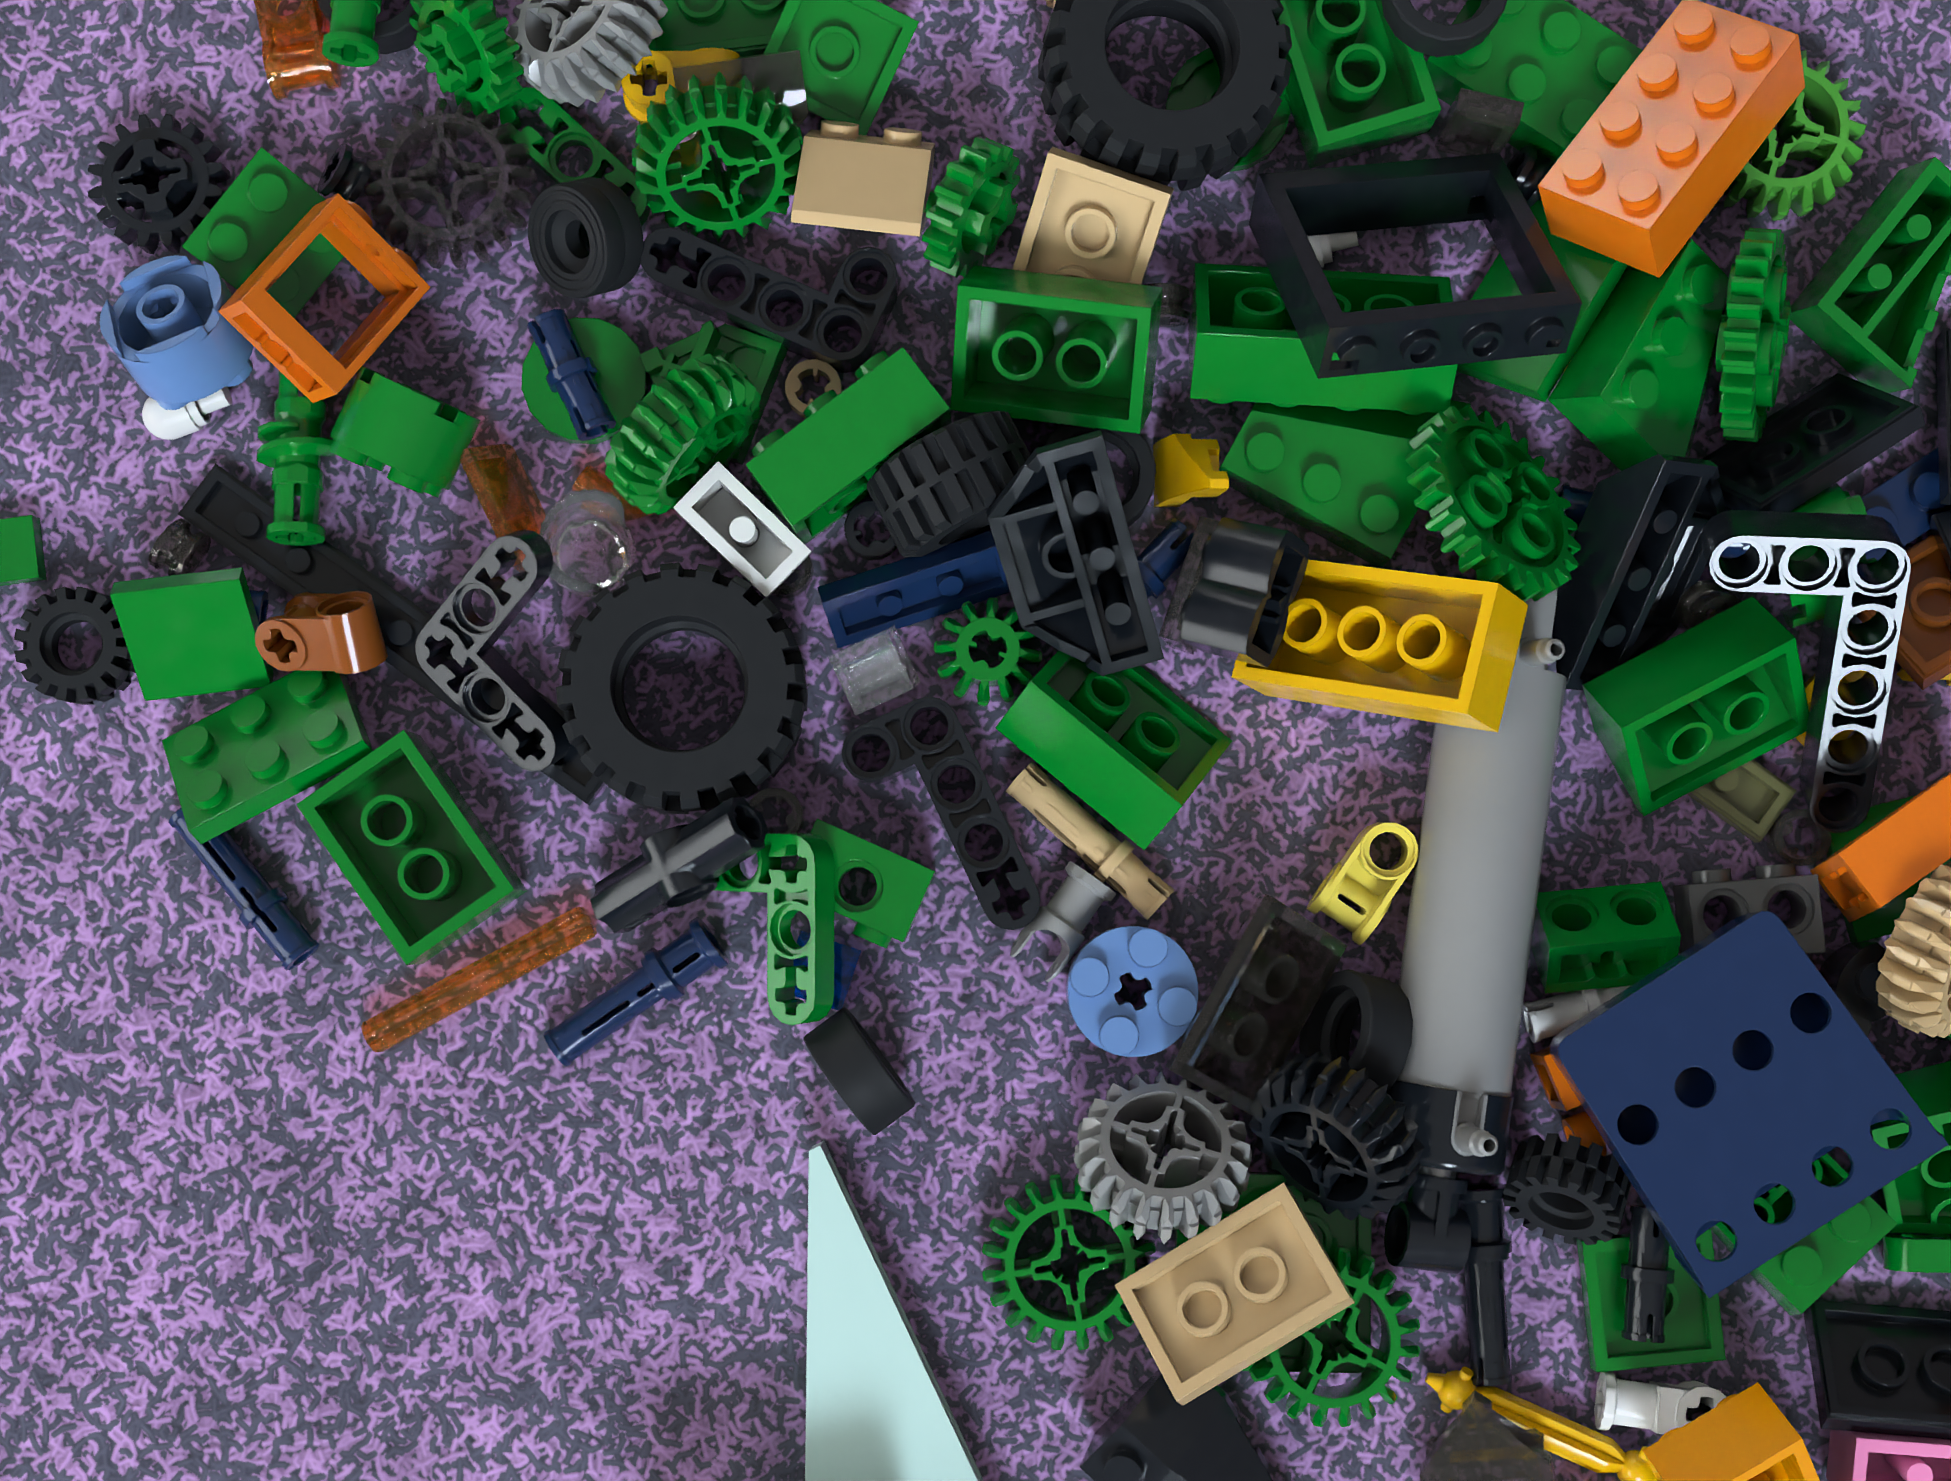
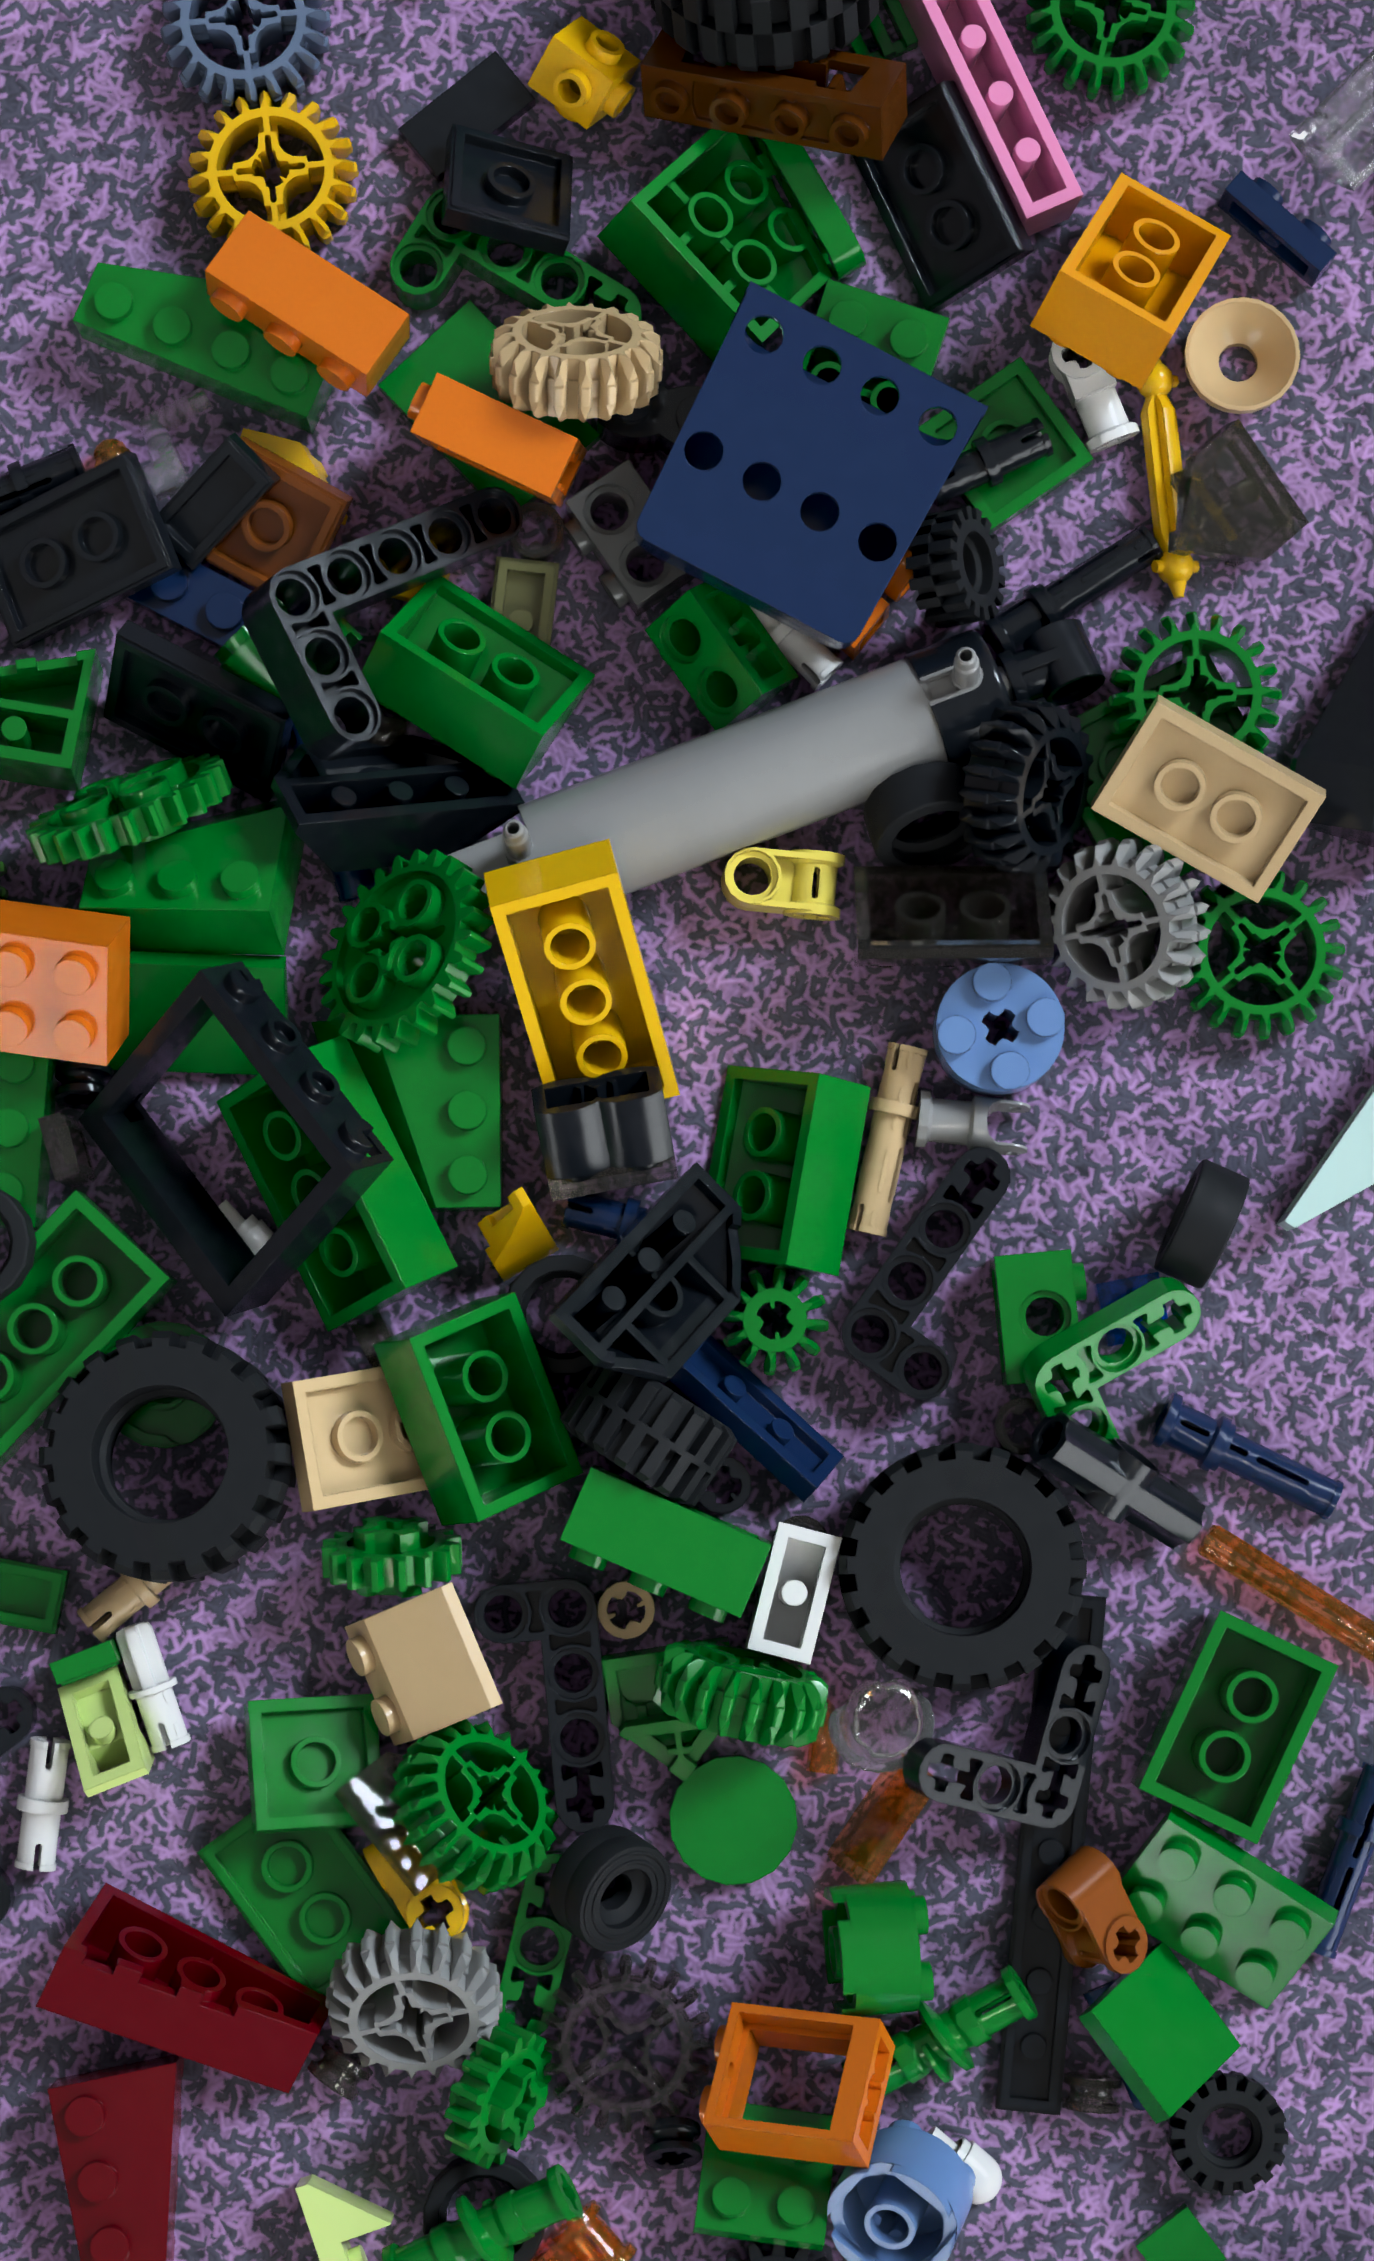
camera: 125 degrees left, 0 degrees up
(571, 374) = (738, 1829): dark blue pin -> none
(874, 670) = (848, 1409): clear brick -> none

